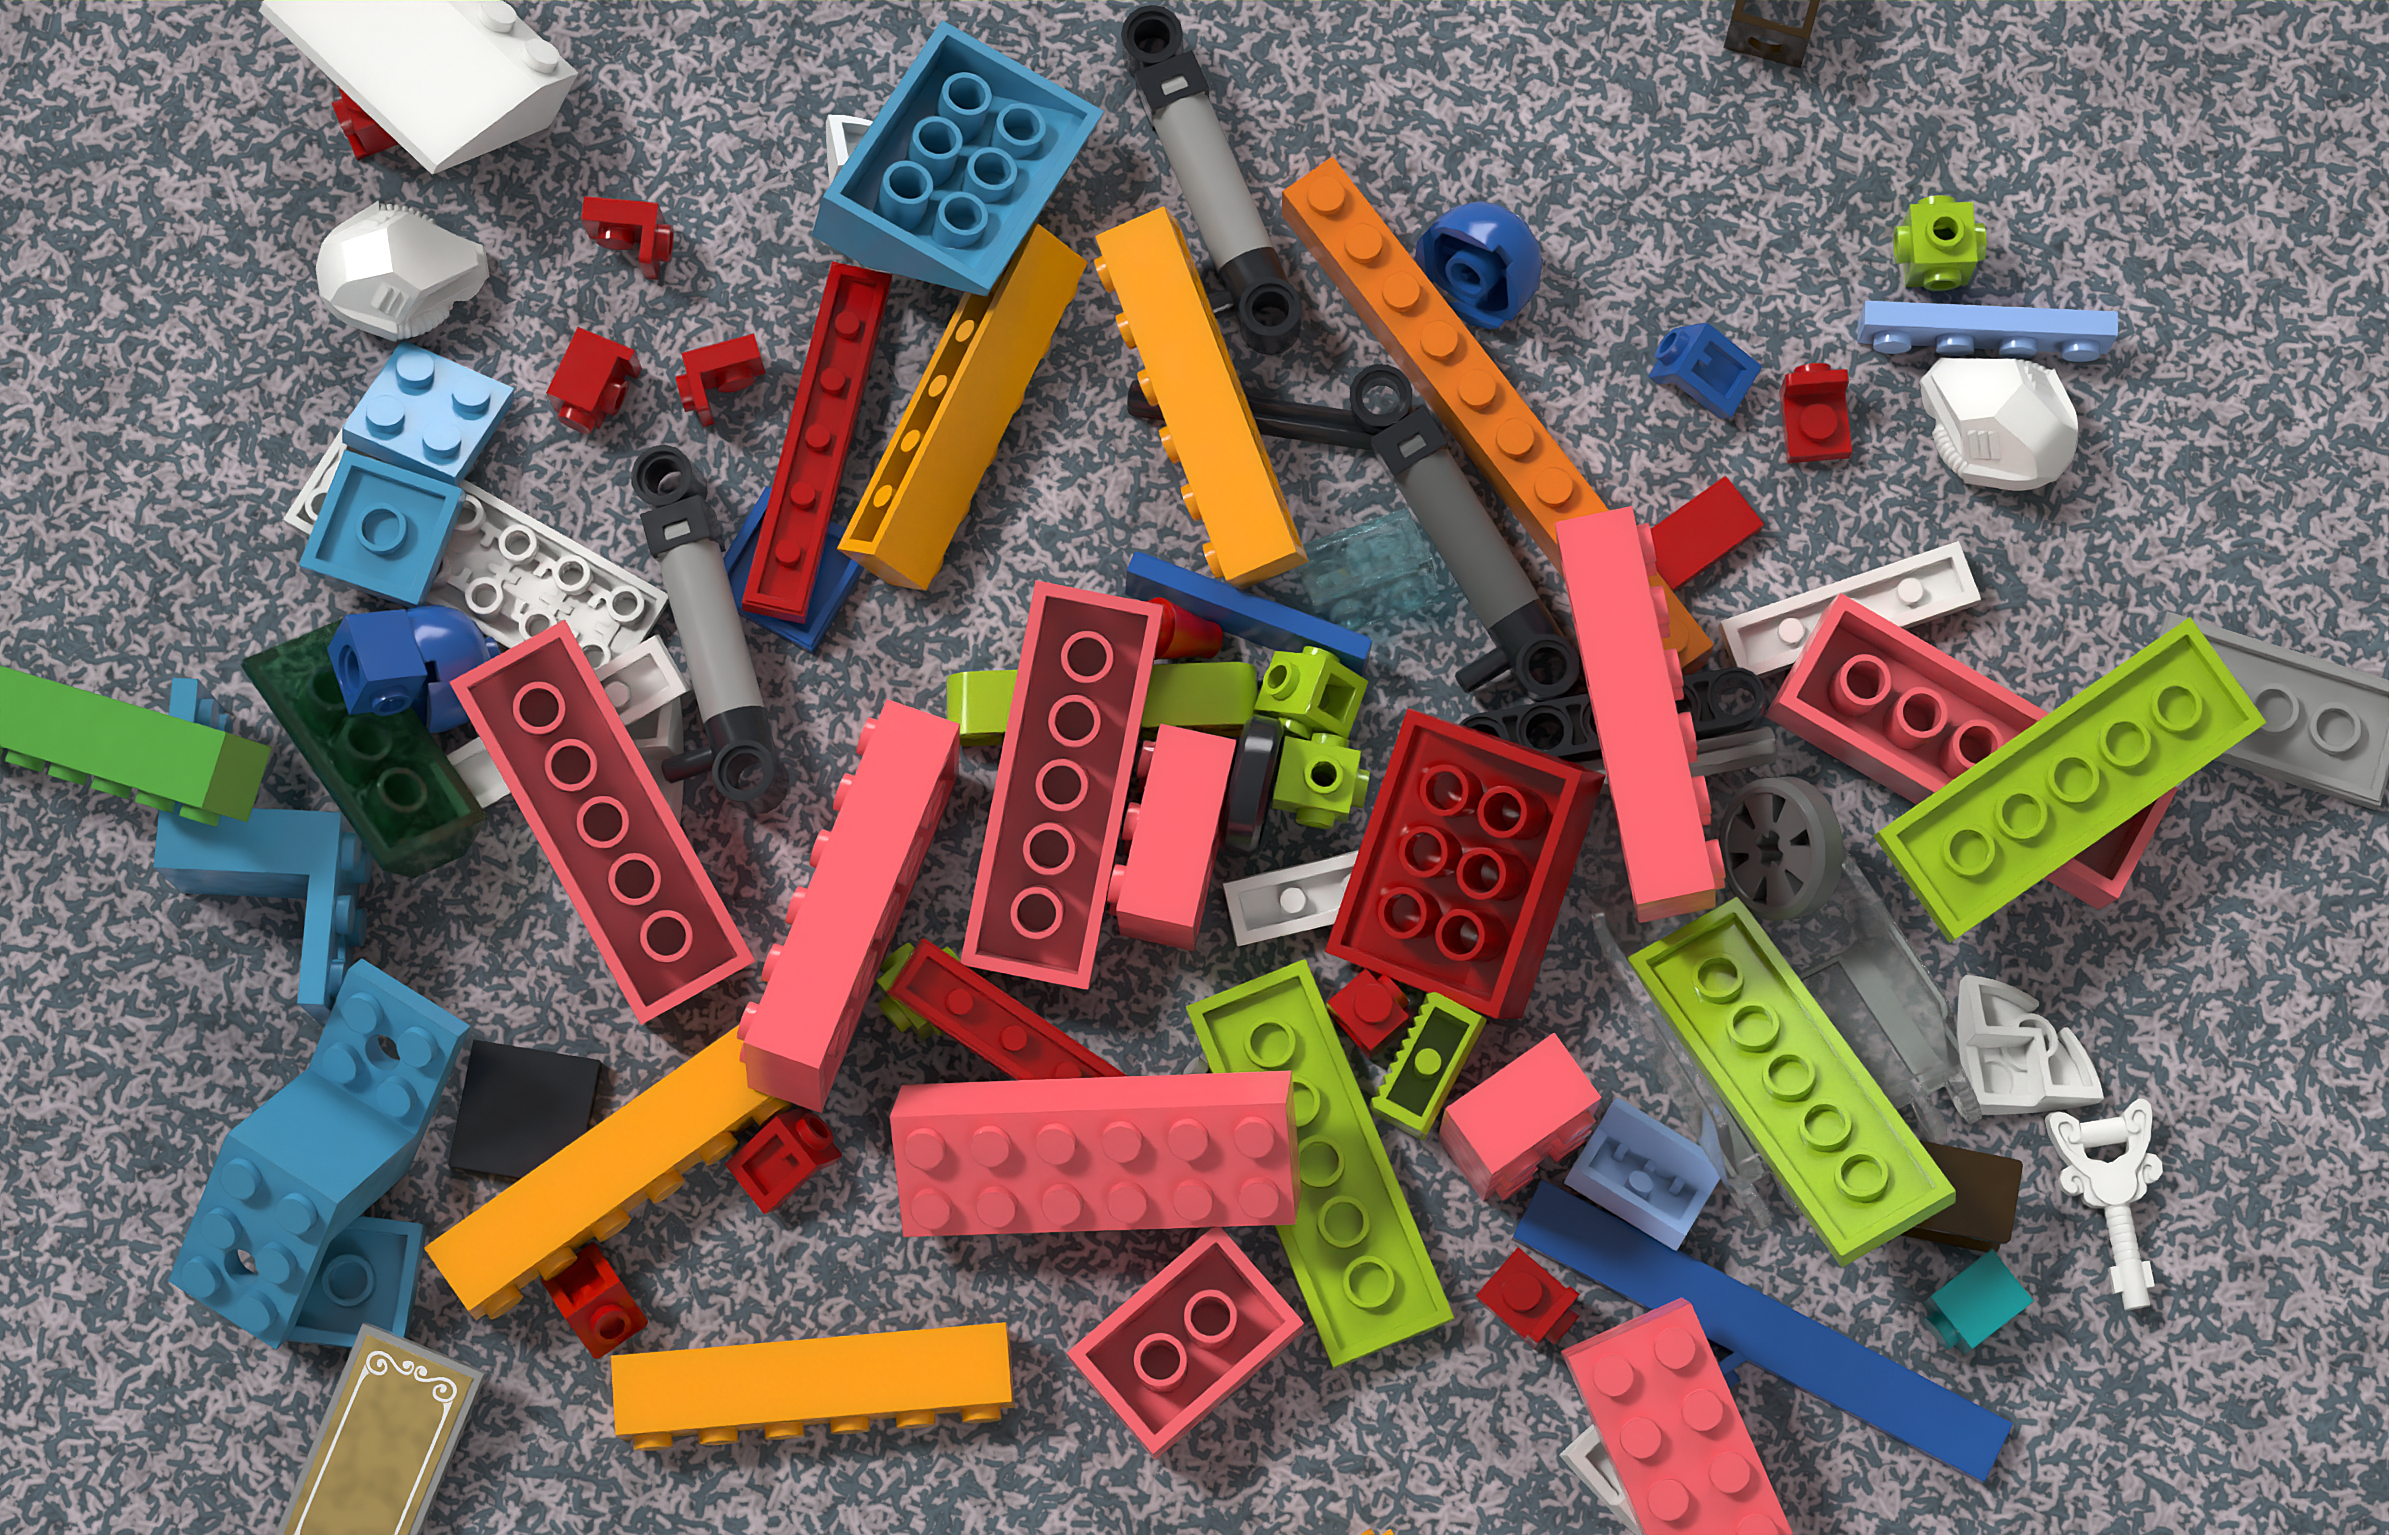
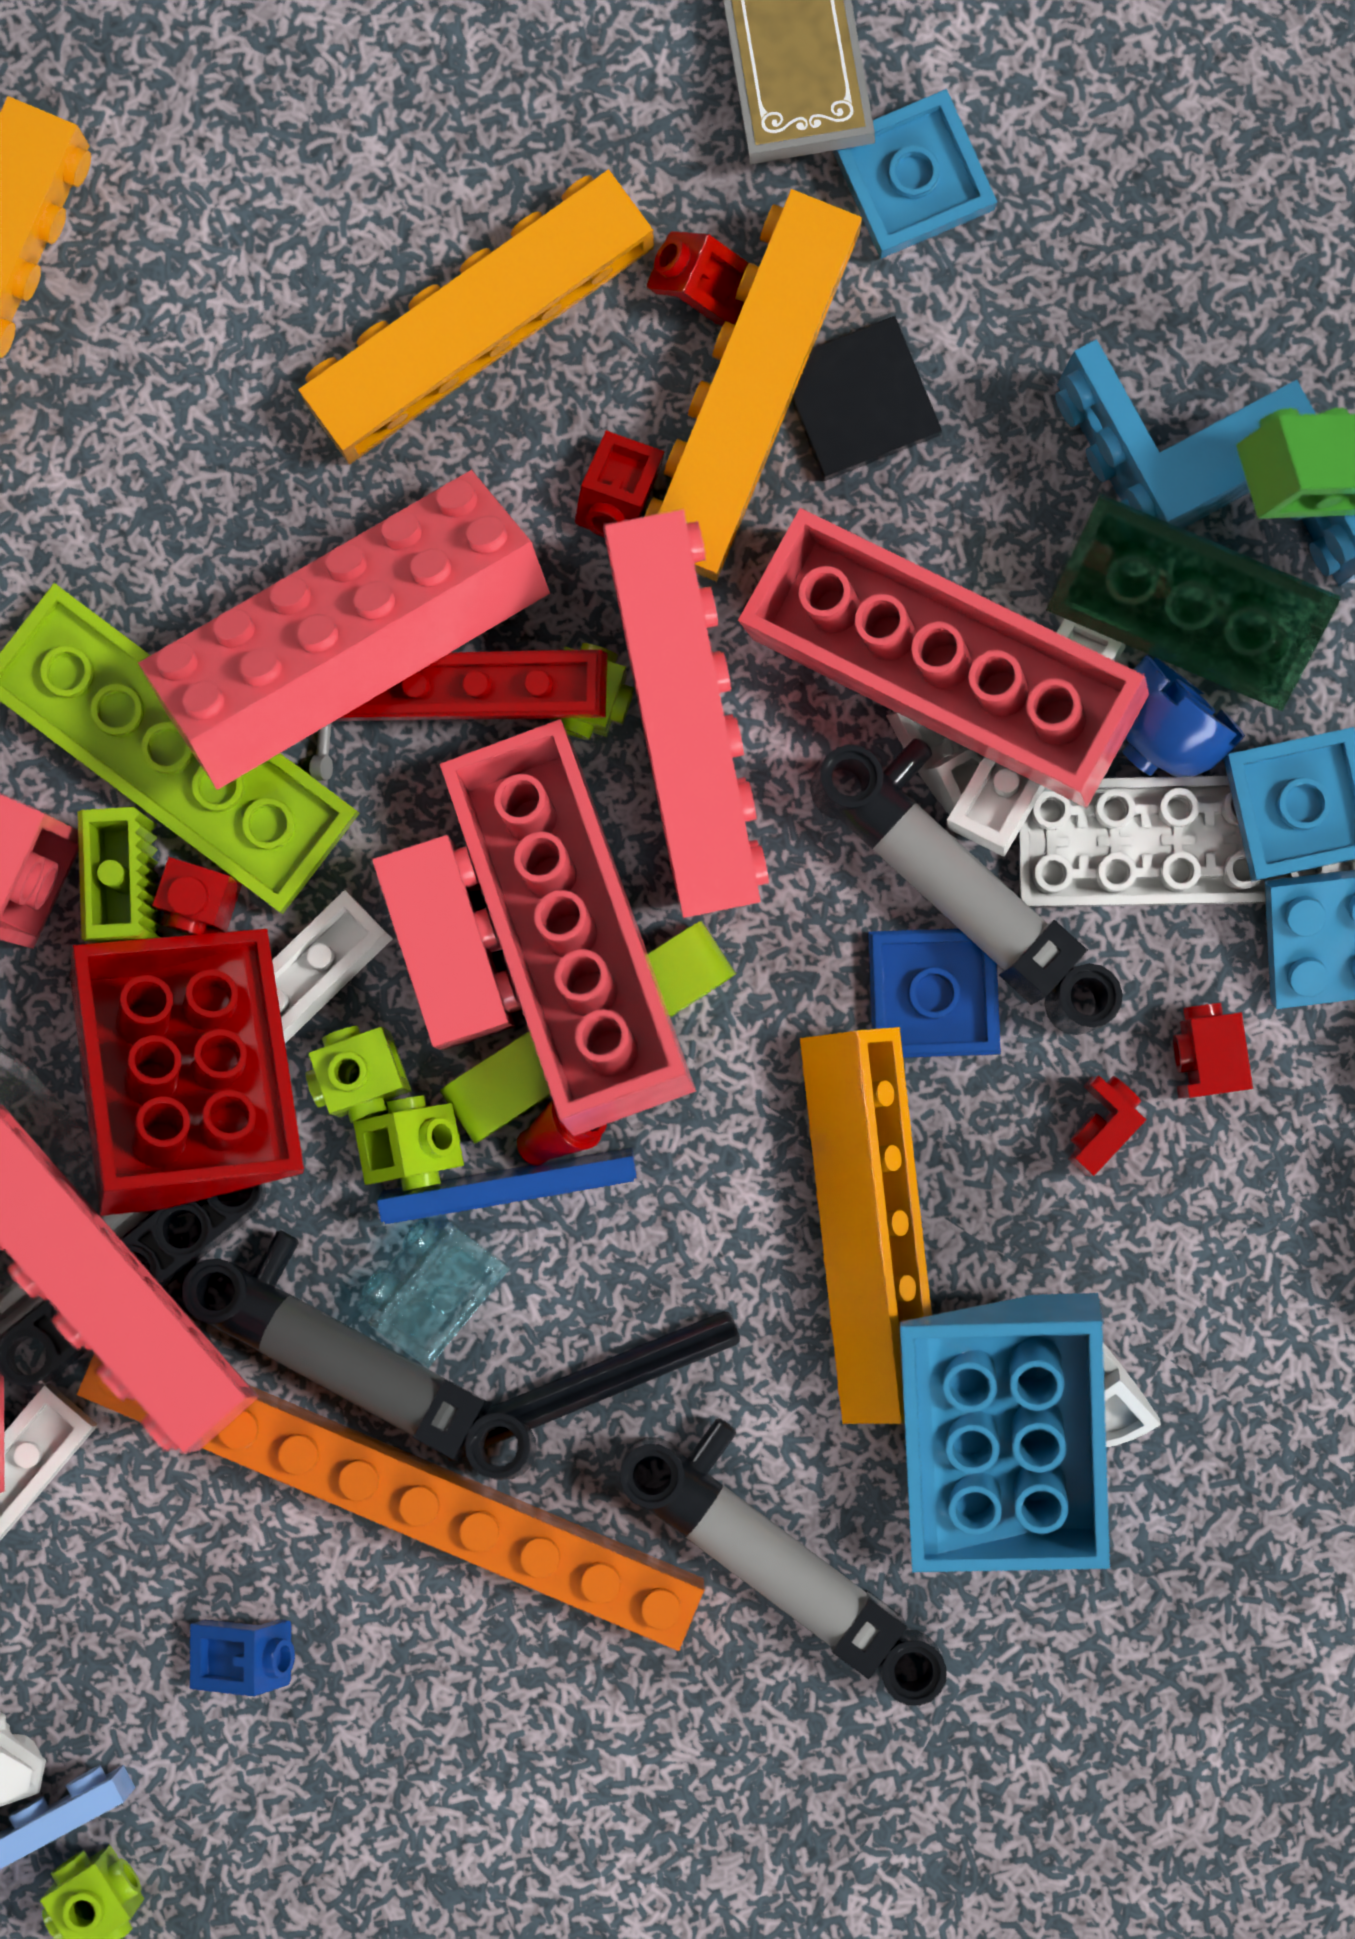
camera: 145 degrees right, 10 degrees up
(318, 1154) = (1000, 241): dark azure bracket -> none
(377, 662) = (1224, 674): blue brick -> none
(622, 222) = (1278, 1212): red bracket -> none
(817, 443) = (979, 1116): red tile -> none
(1186, 1341) = (184, 523): coral brick -> none
(1200, 400) = (663, 1352): light orange brick -> none
(1251, 785) = (405, 1031): black wheel -> none
(1483, 261) = (490, 1638): blue cylinder -> none
(1702, 533) = (161, 1502): red tile -> none
(1815, 413) = (119, 1671): red bracket -> none

